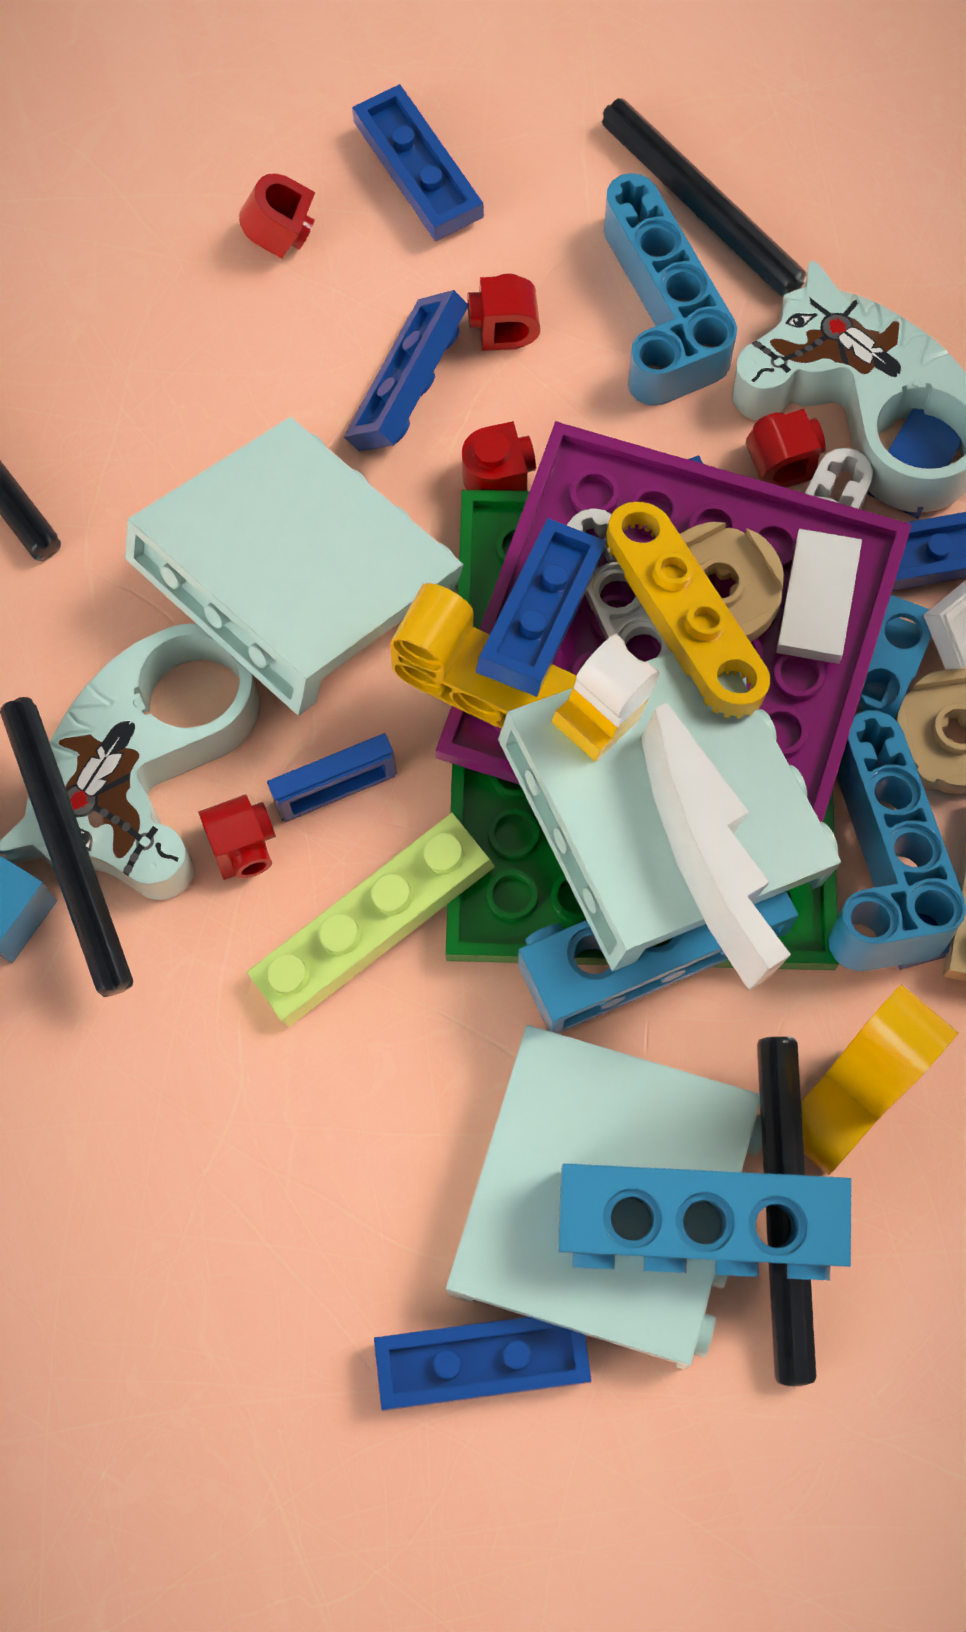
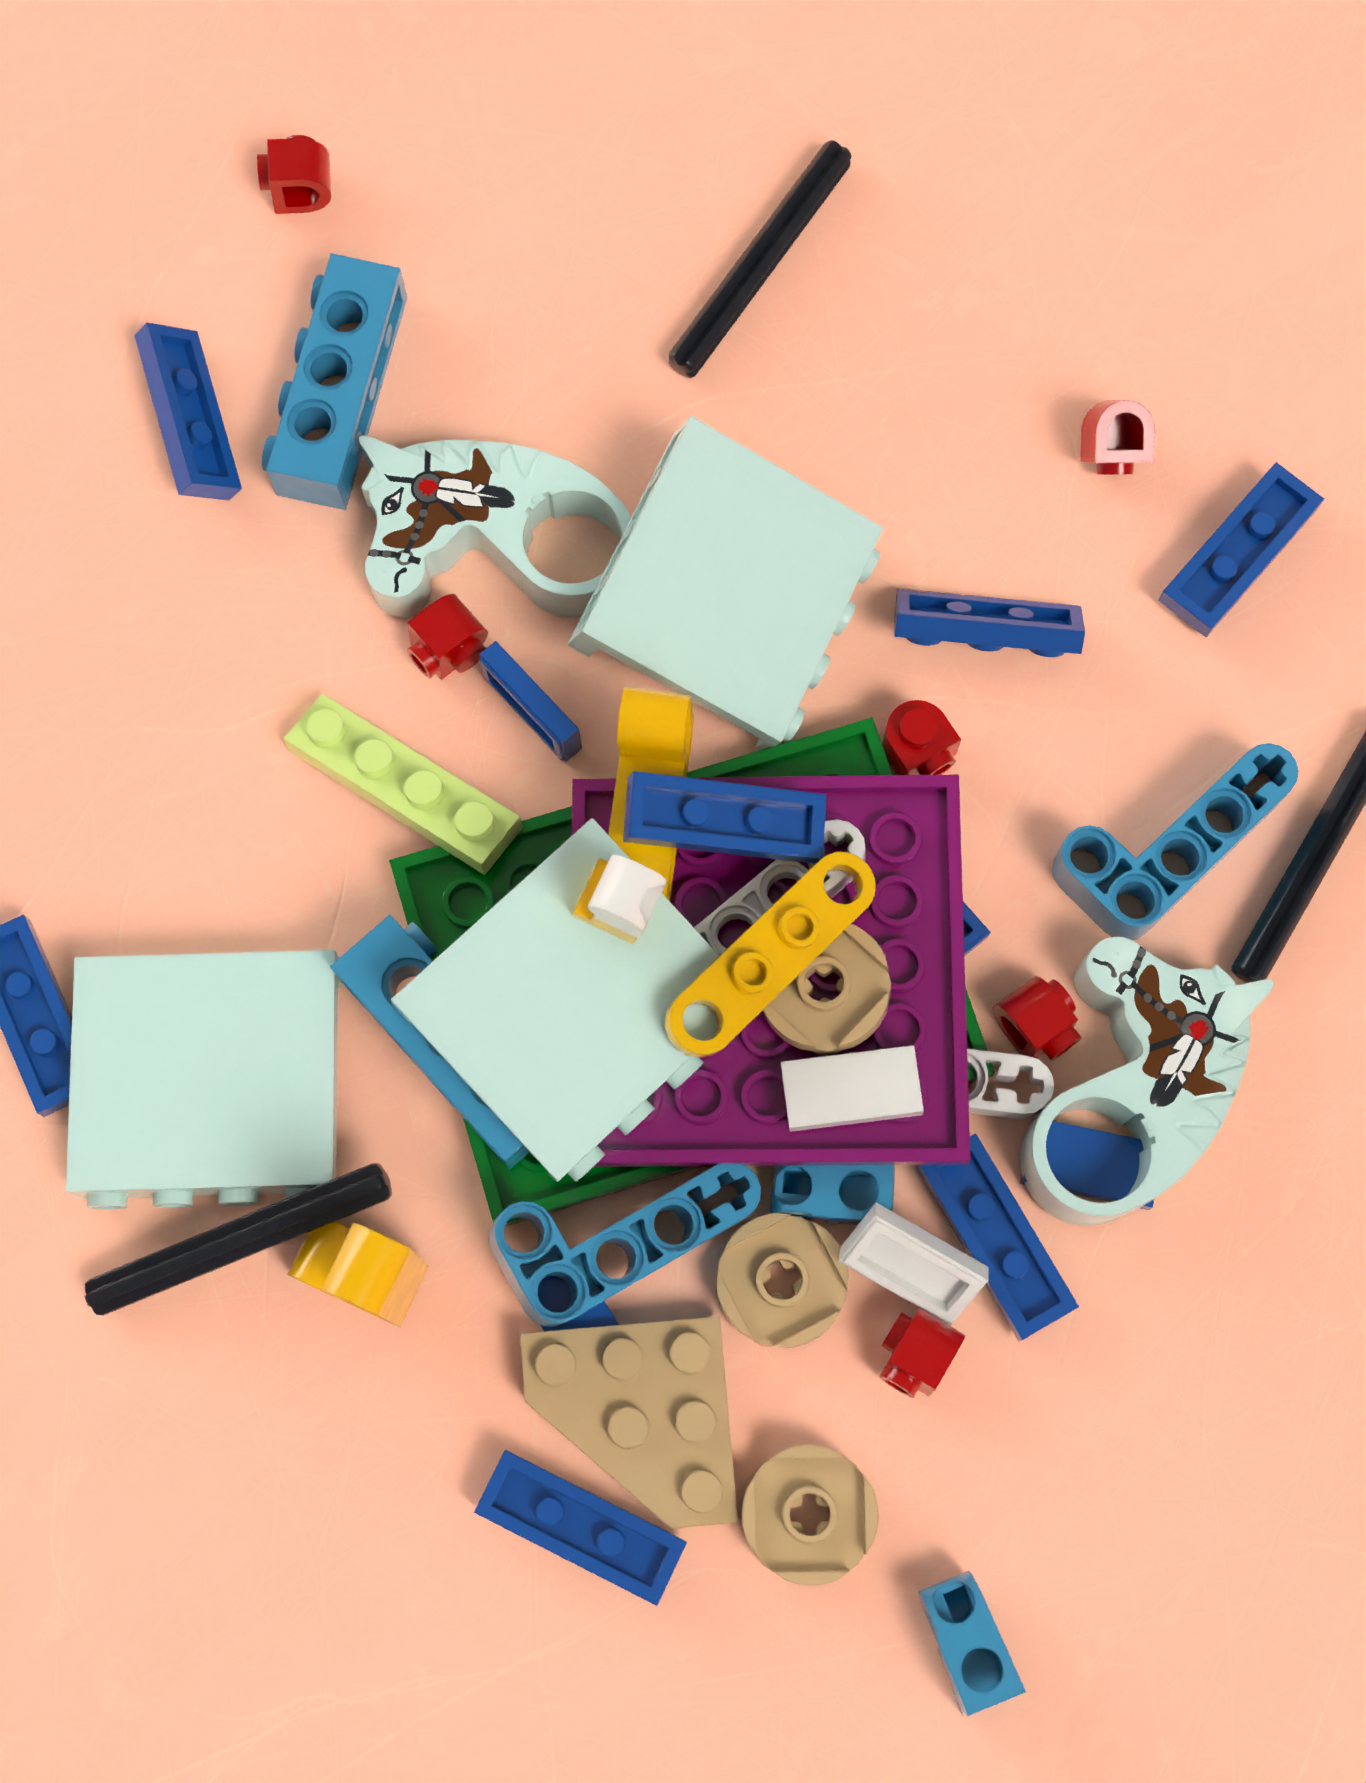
camera: 70 degrees right, 5 degrees up
(66, 847) = (374, 490): black axle -> none
(504, 312) = (1094, 692): red plate -> none
(700, 824) = (532, 1025): white slope -> none
(815, 1205) = (230, 1247): dark azure brick -> none

